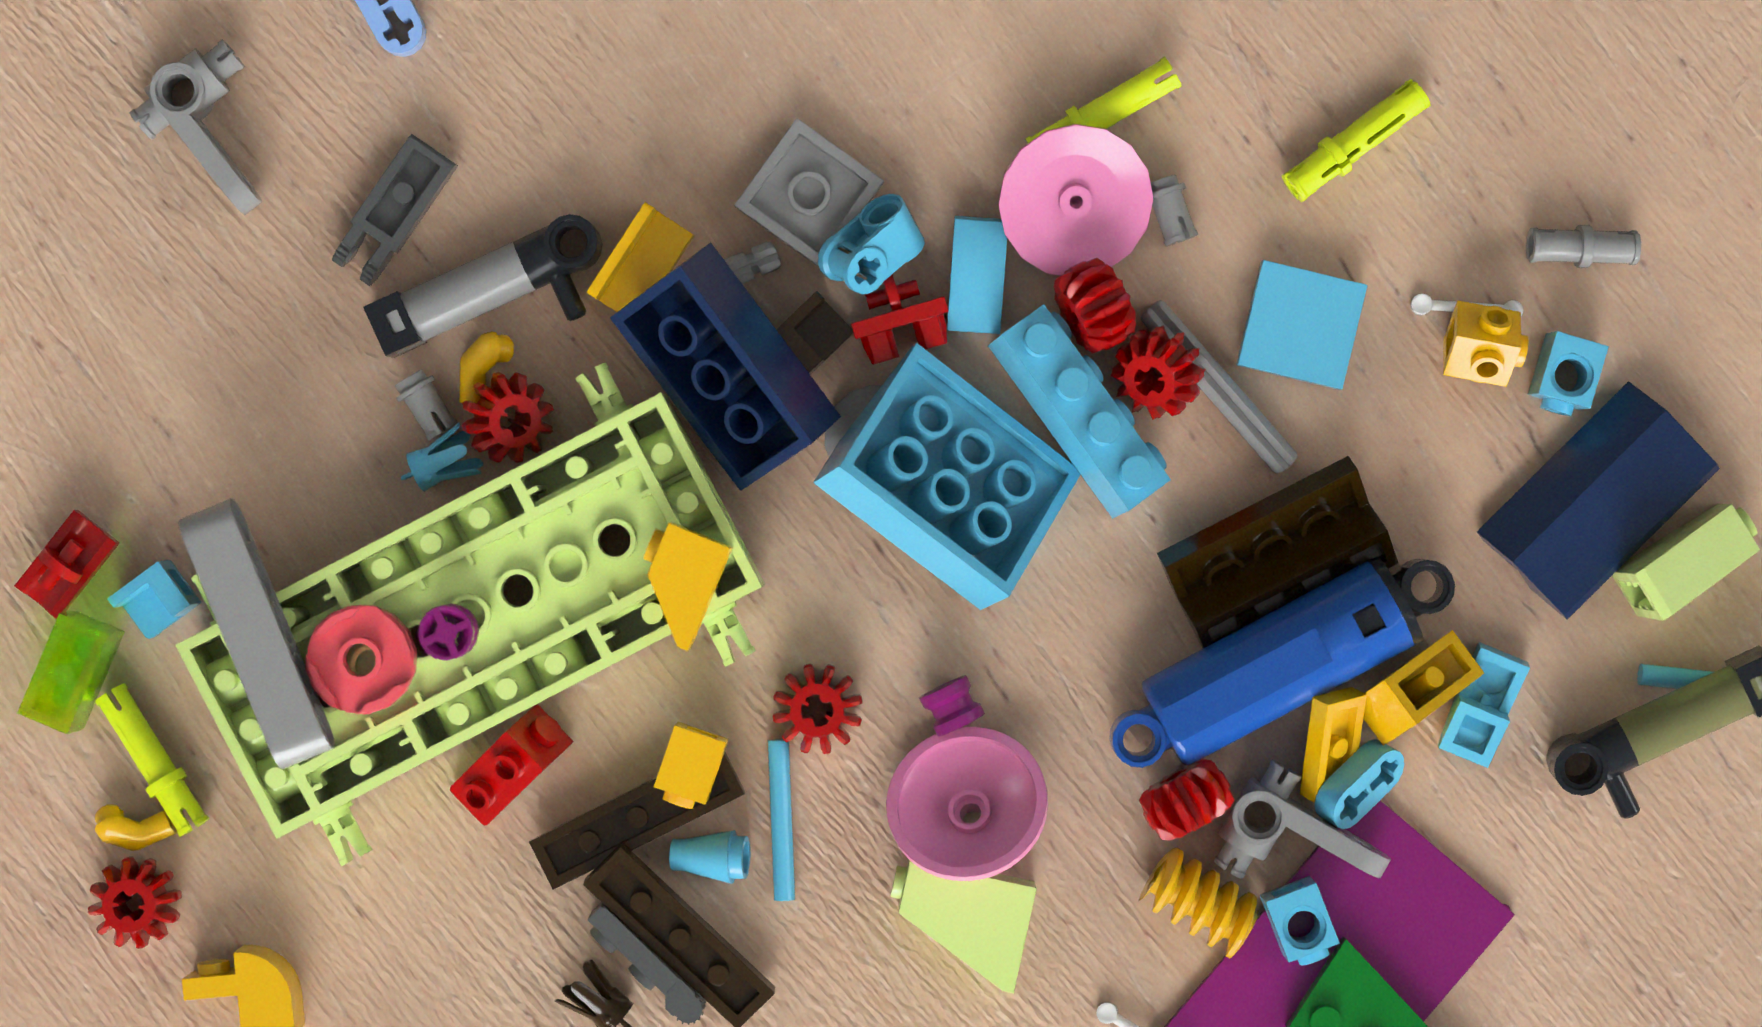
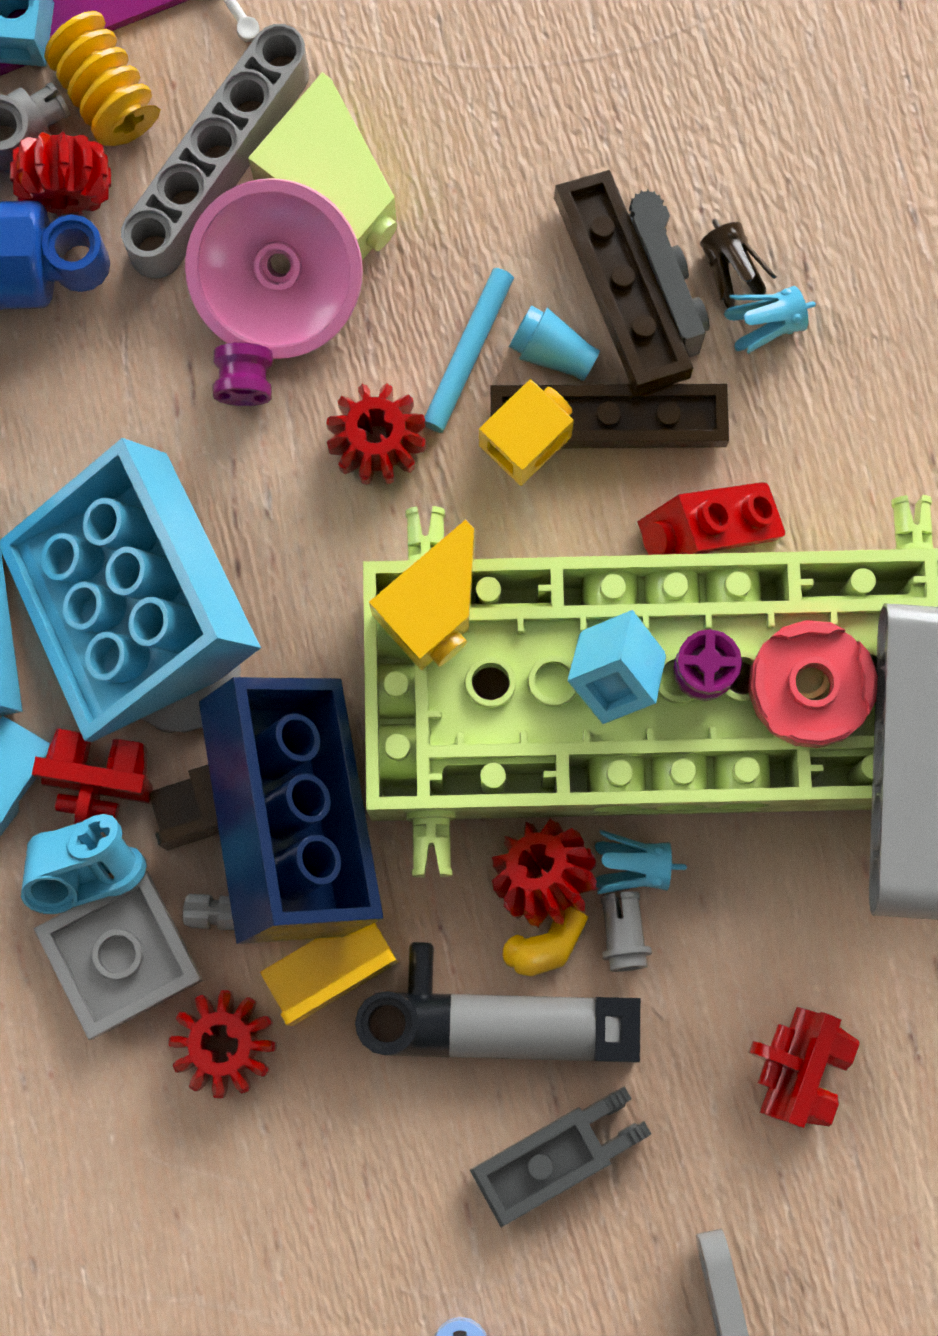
camera: 150 degrees left, 10 degrees down
(242, 363) = (797, 1064): none -> red hips
(517, 596) = (617, 667): none -> medium azure panel
(536, 973) = (783, 312): none -> medium azure piece
(701, 149) = (208, 1060): none -> red gear
(1076, 913) = (216, 126): none -> light grey beam

